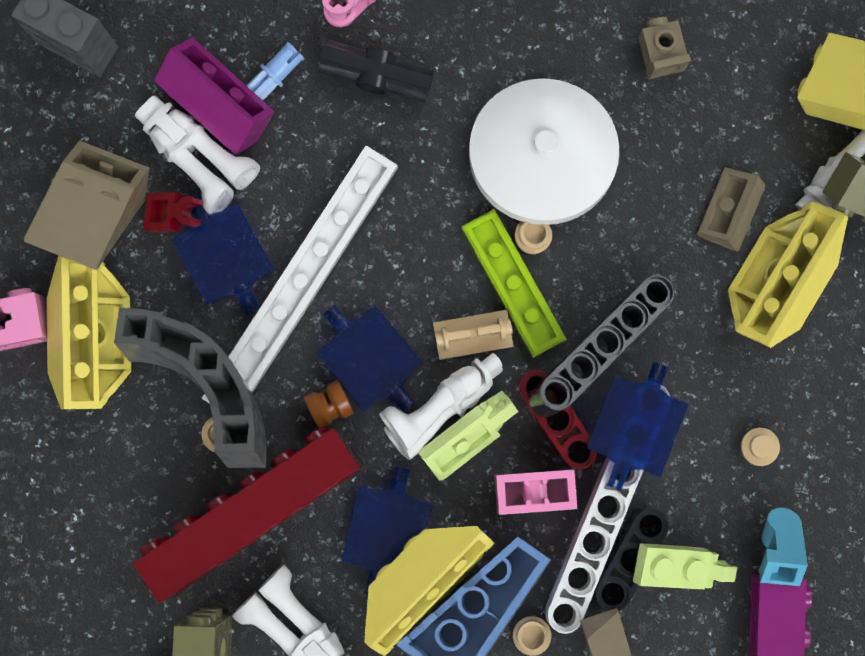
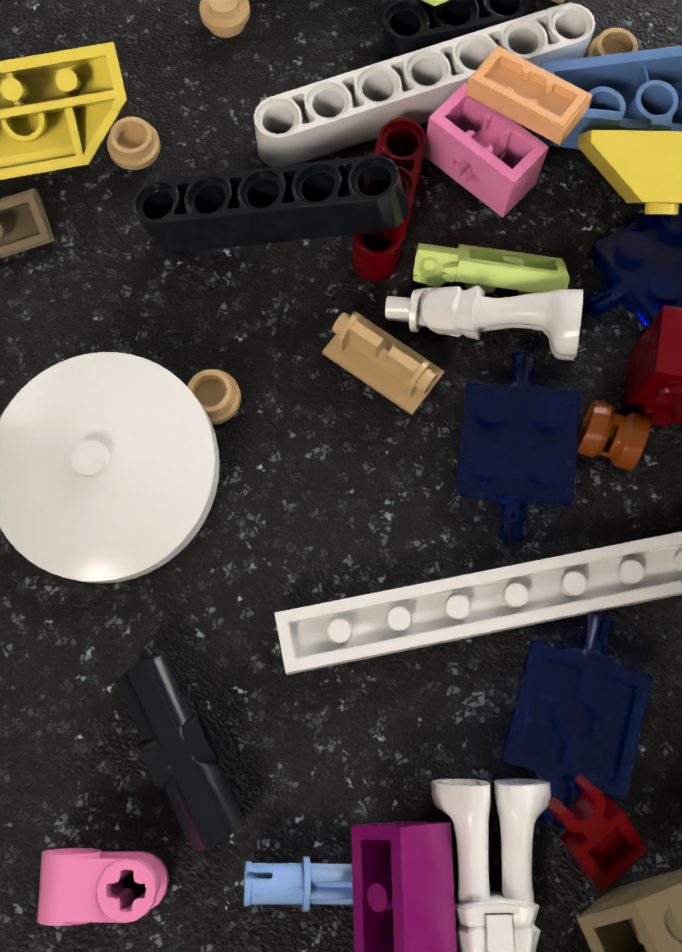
camera: 135 degrees left, 10 degrees down
(513, 283) = (284, 375): lime tile -> none
(535, 529) = (528, 94): none -> light nougat plate
(637, 426) = (321, 99): clear blue plate -> none
(716, 322) = (133, 143): none -> tan plate

